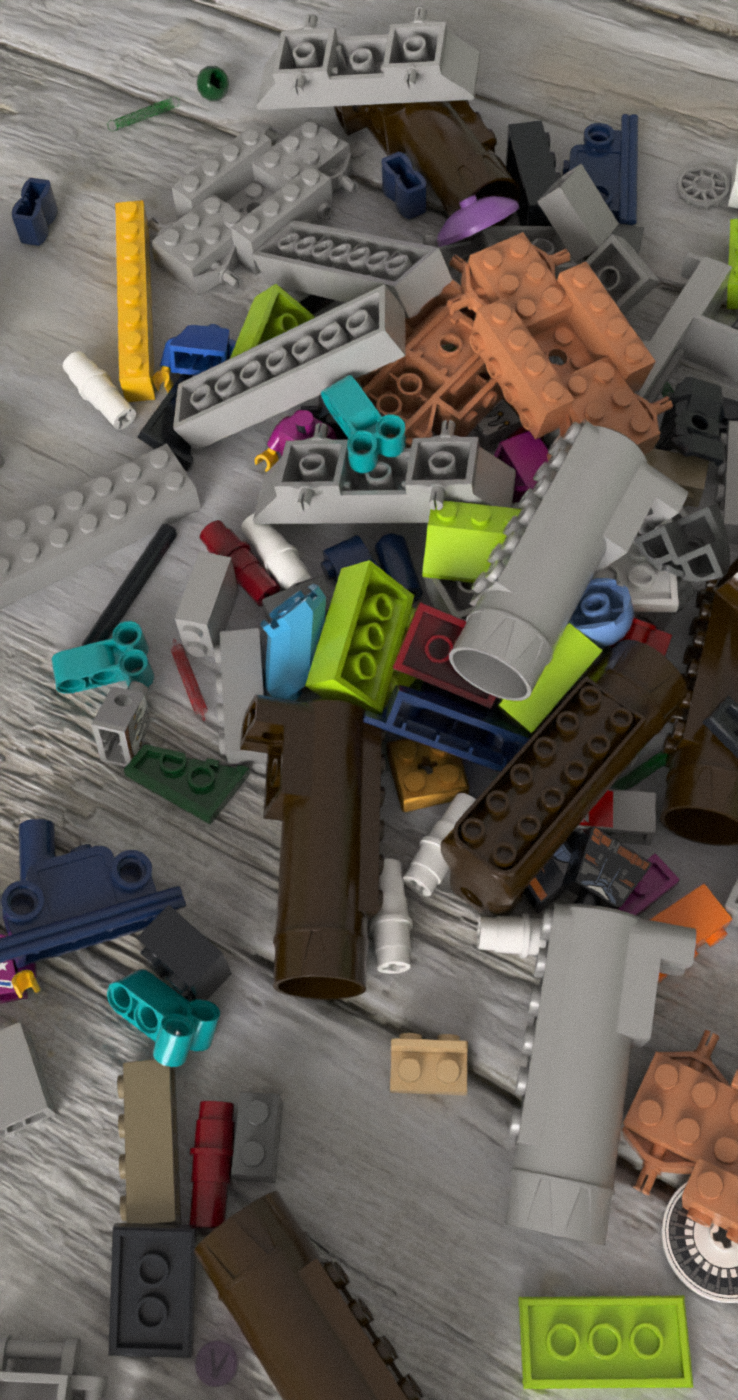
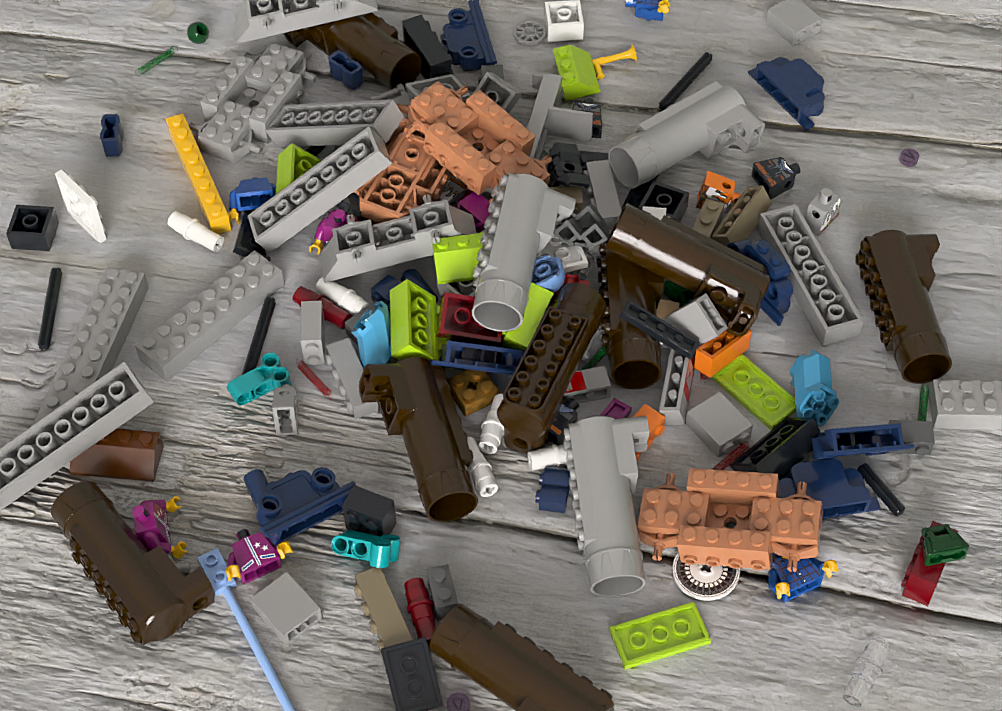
camera: 20 degrees left, 10 degrees down
(189, 783) = (336, 432): dark green wing -> none
(363, 424) = (377, 207): teal piece -> none
(428, 1065) = (524, 534): tan bracket -> none
(474, 217) = (401, 79): medium lavender dish -> none
(504, 996) = (554, 489): none -> dark blue brick
(578, 213) = (462, 63): light grey brick -> none
(603, 870) = (587, 403): torso -> none

